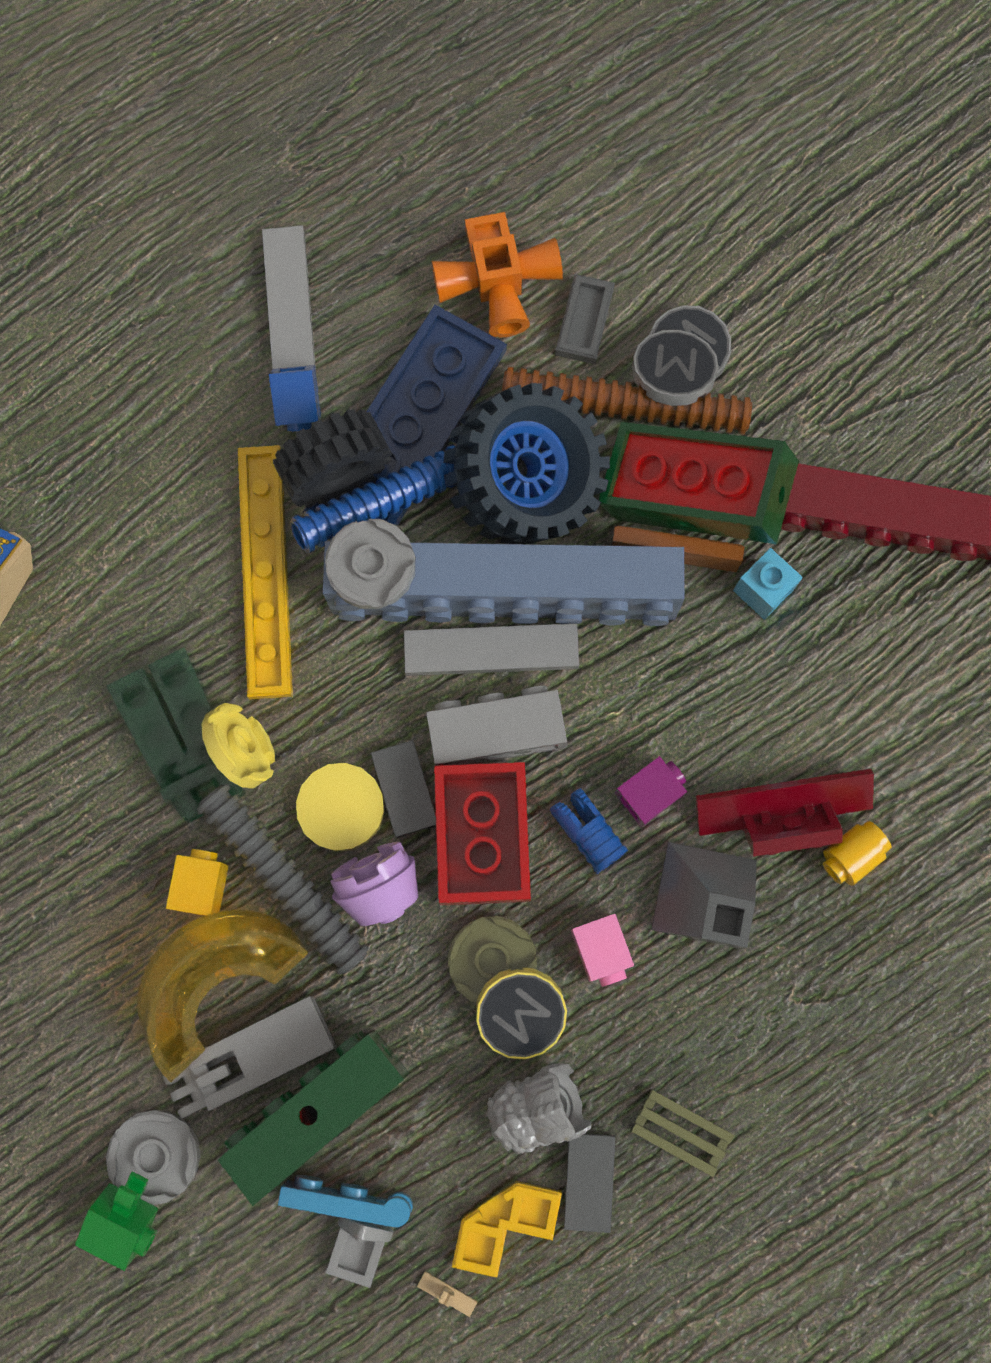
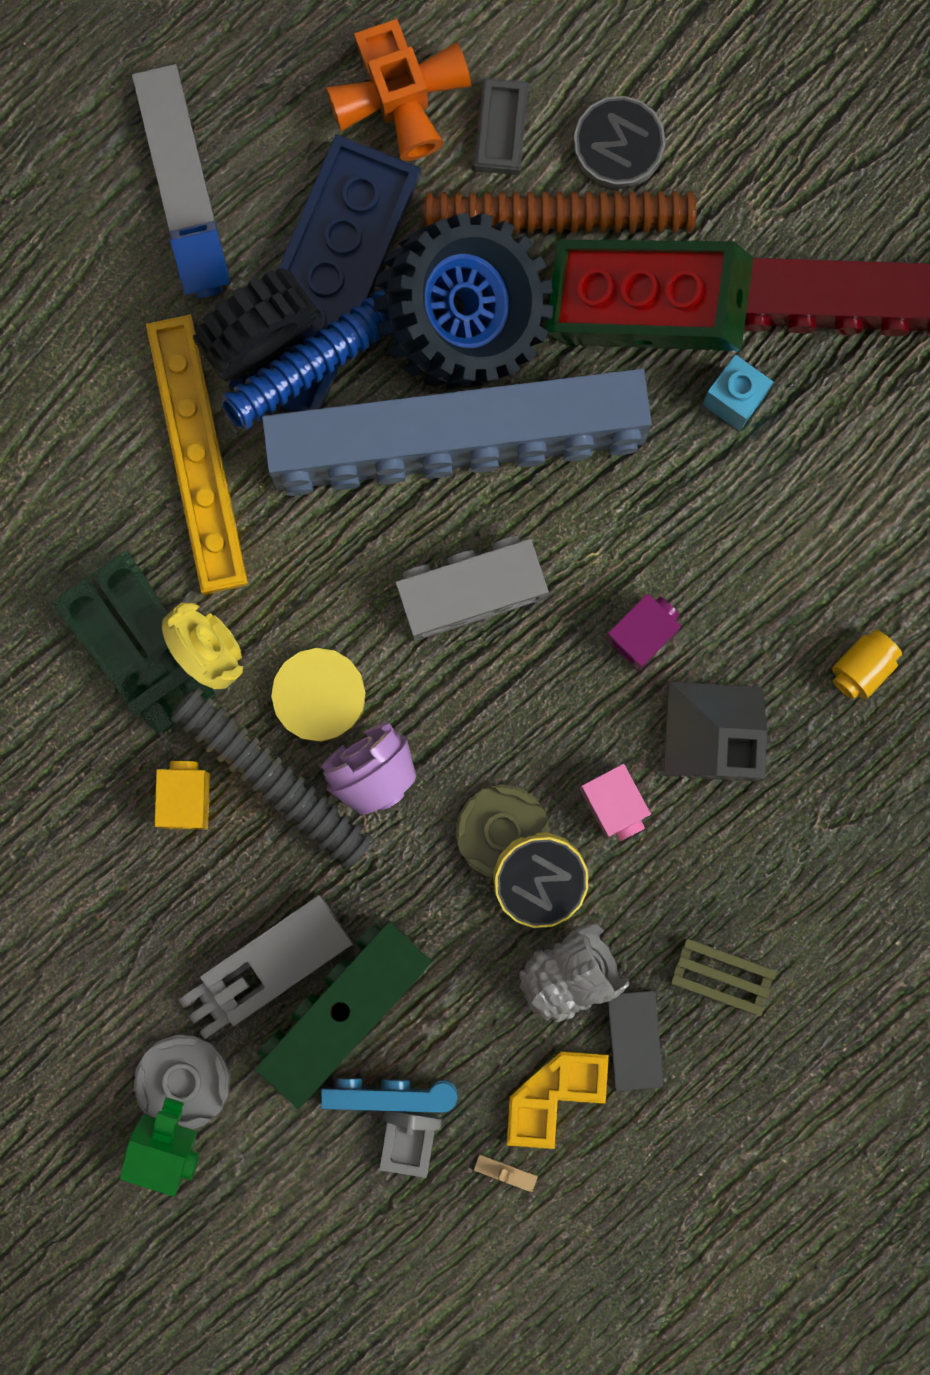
camera: 10 degrees left, 5 degrees up
(198, 960) = (198, 875): clear yellow brick -> none
(370, 564) = (315, 433): light grey tile -> none
(404, 789) = (383, 666): dark grey tile -> none
(482, 834) = (474, 701): red brick -> none
(491, 649) = (453, 504): light grey tile -> none
(594, 839) = (592, 689): blue hinge -> none
(674, 367) = (607, 169): tile -> none
(696, 550) = (657, 367): dark orange tile -> none
(789, 812) = (789, 633): dark red bracket -> none

